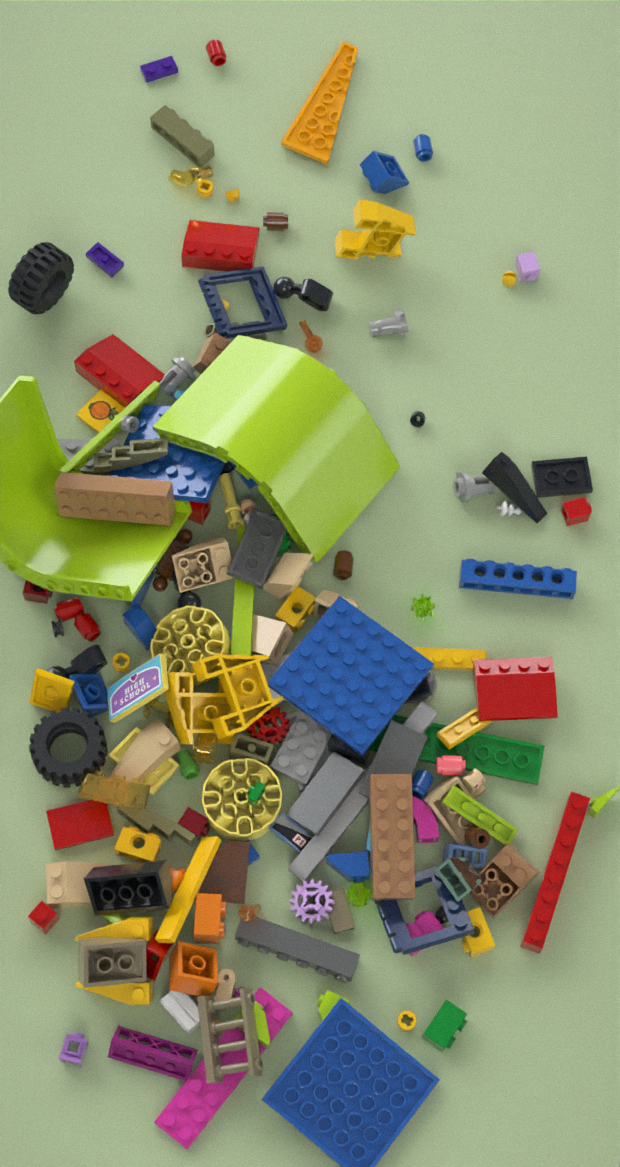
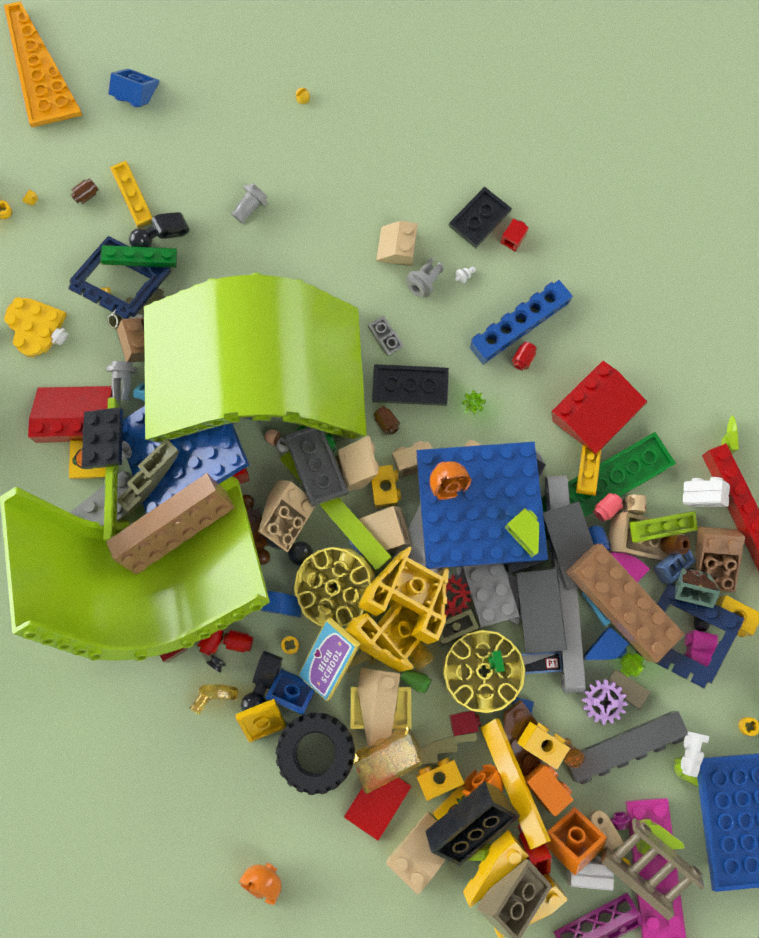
camera: 40 degrees left, 10 degrees up
(36, 644) = (212, 691): none -> clear yellow arm
(43, 917) = (422, 904): red brick -> none
(124, 403) = (102, 438): none -> black plate
(150, 288) = (33, 325): none -> yellow plate
(162, 310) = (59, 336): none -> white plate
(219, 246) = (58, 247): red slope -> none
(232, 509) = (262, 449): light yellow pin -> none
(235, 897) = (552, 753): none -> yellow brick
(271, 299) = (139, 256): none -> green plate
(309, 250) = (132, 194): none -> yellow tile
(313, 342) = (202, 265): clear orange plate -> none
(339, 632) = (449, 479): none -> orange cylinder
(344, 982) = (693, 754): none -> white wing
(363, 714) = (525, 531): none -> lime slope
(381, 232) = (178, 131): yellow wedge -> none
(386, 554) = (410, 384): none -> black plate
(402, 504) = (385, 336): none -> light grey slope
(413, 420) = (337, 264): black hinge -> none
(423, 148) = (145, 43): blue brick -> none
(452, 658) = (528, 423): yellow plate -> none
(477, 445) = (397, 243): none -> tan slope
(495, 606) = (524, 356): none -> red brick
(511, 482) = (448, 250): black wedge -> none
(527, 266) = (308, 75): lavender brick -> none
(538, 821) = (706, 493): none -> white brick

